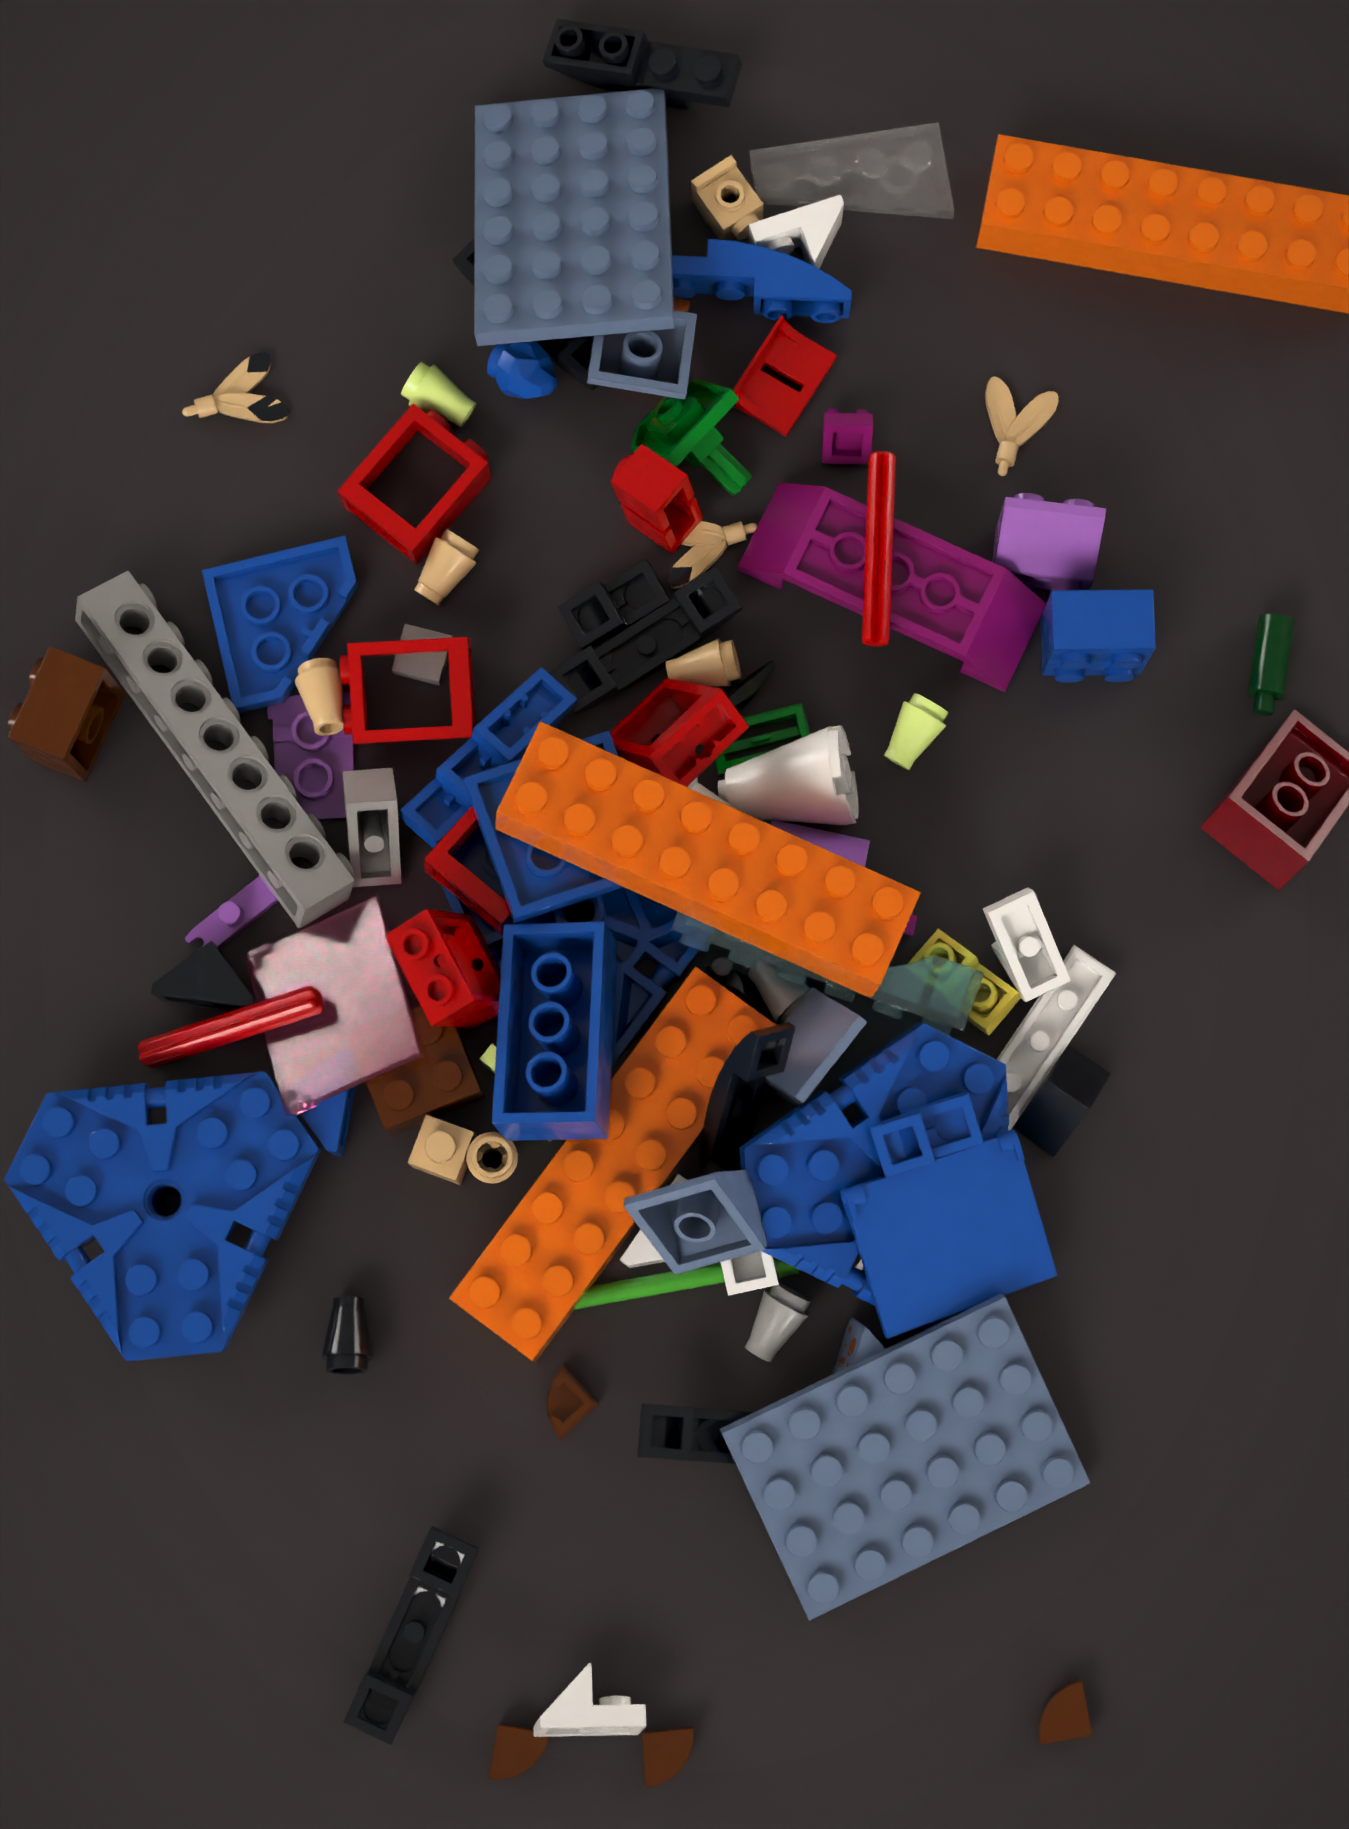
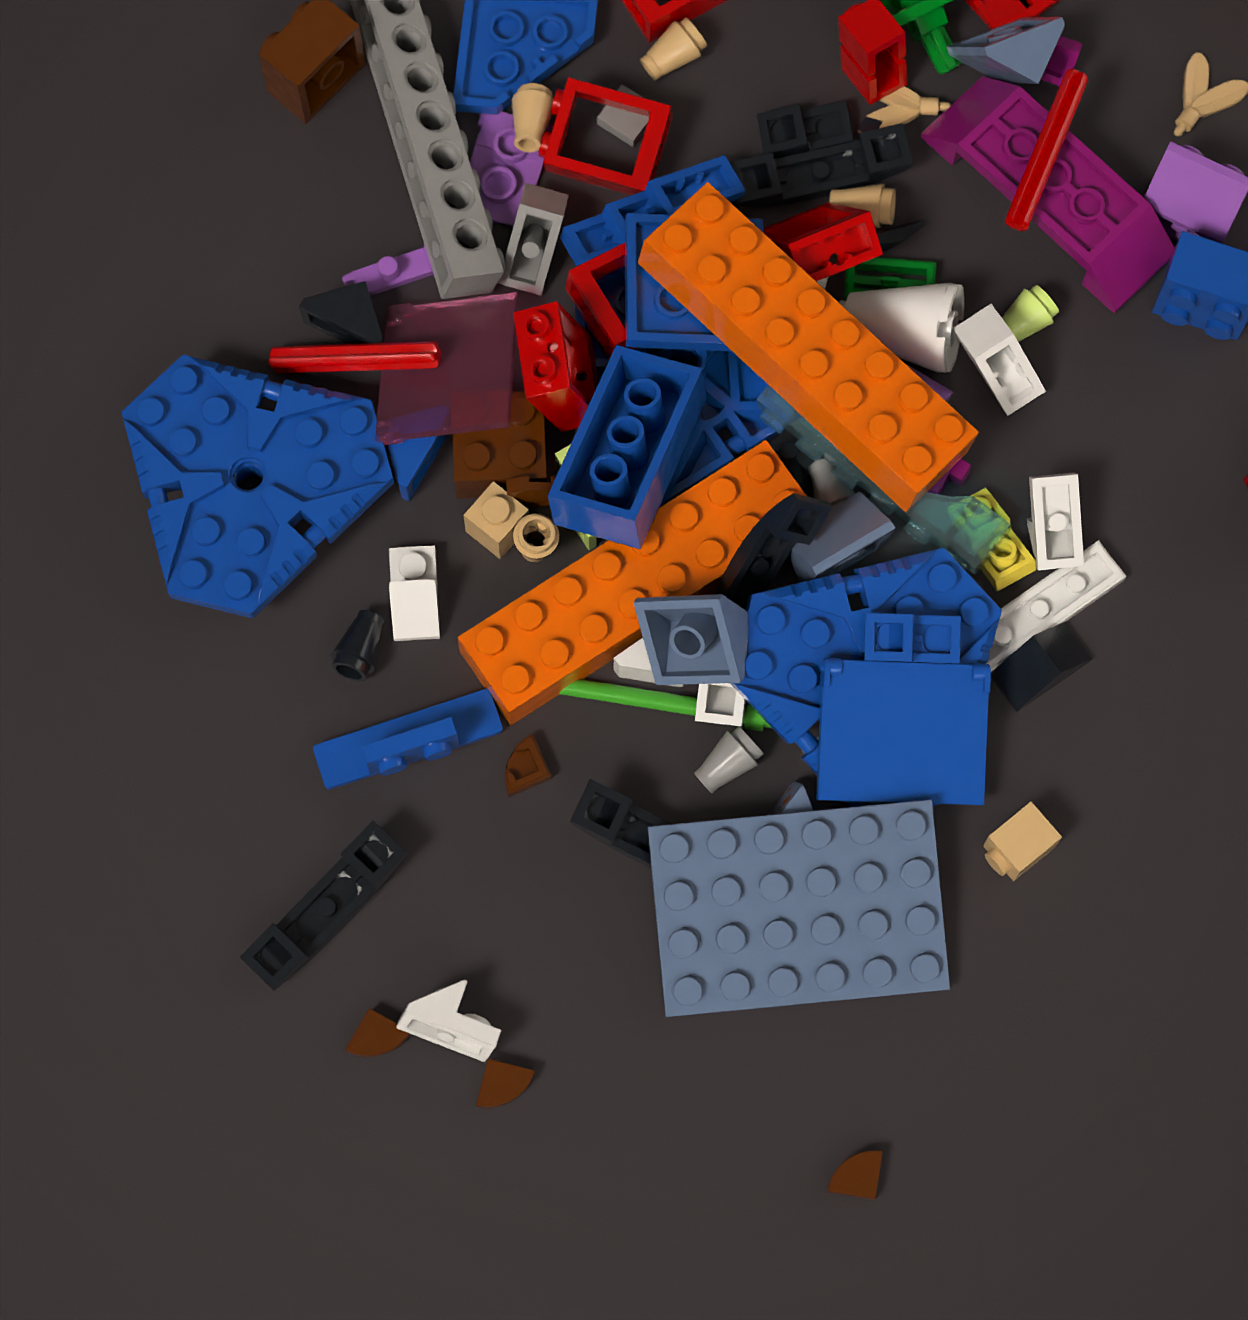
camera: 15 degrees right, 5 degrees down
(384, 1256) = (414, 593): none -> white slope
(433, 1419) = (407, 739): none -> blue bracket
(468, 1112) = (529, 493): none -> reddish brown tile
(803, 445) = (1012, 51): none -> sand blue slope
(905, 789) = (999, 359): none -> white arch
(1108, 1301) = (1021, 842): none -> tan brick

